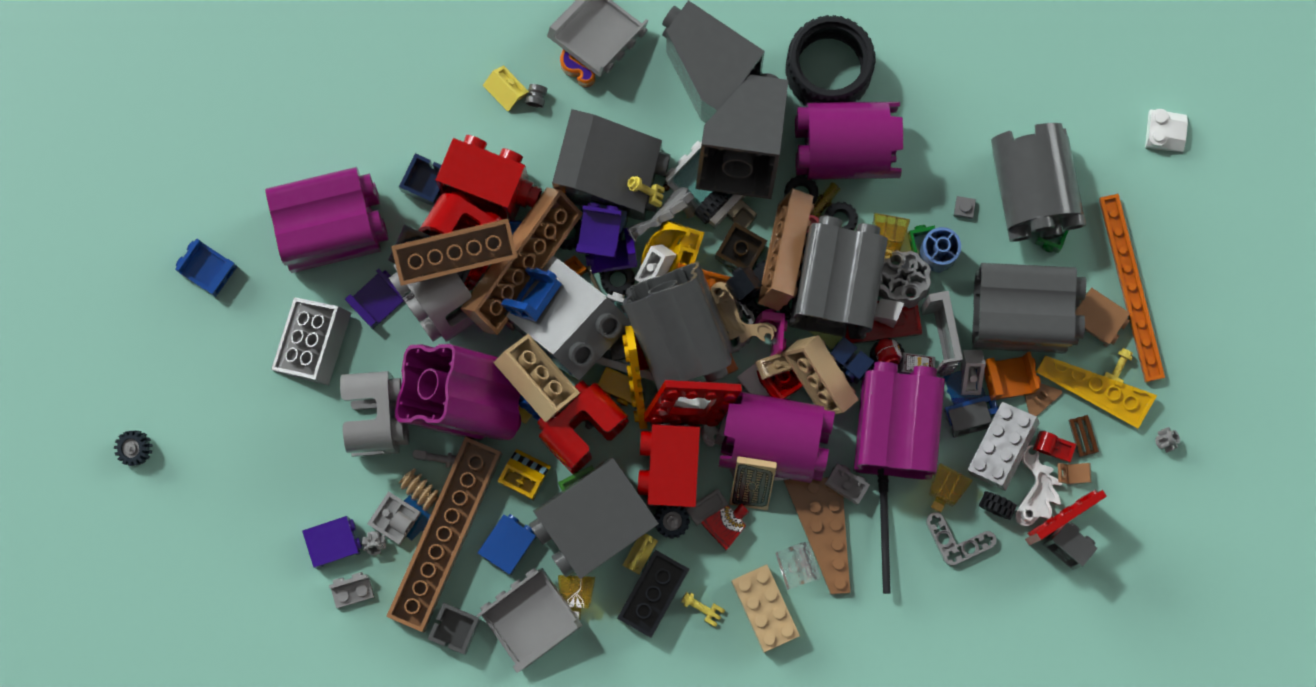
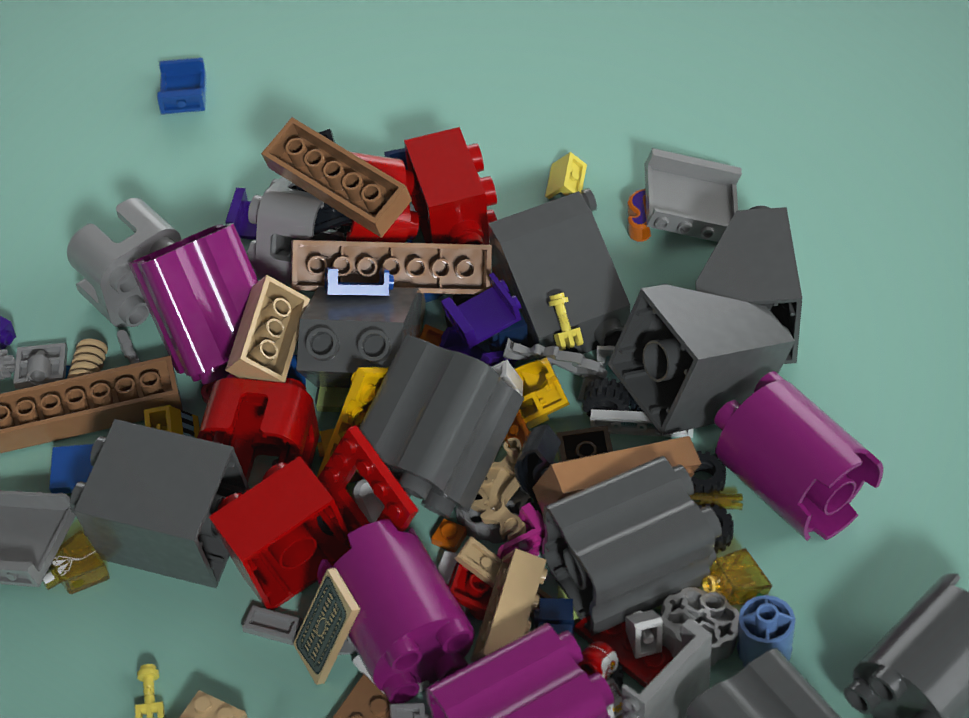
camera: 55 degrees right, 30 degrees down
(311, 340) = (182, 194): light grey slope -> none
(326, 219) = (293, 84): magenta brick -> none
(640, 553) = (168, 596): light yellow hinge -> none
(653, 594) = (126, 632): black brick -> none
(672, 521) = (227, 596): black wheel -> none
(726, 525) = (263, 652): red torso -> none
(742, 214) = (626, 433): dark tan panel -> none
(830, 28) = (874, 358): black tyre -> none
(964, 207) = (842, 638): light grey plate -> none

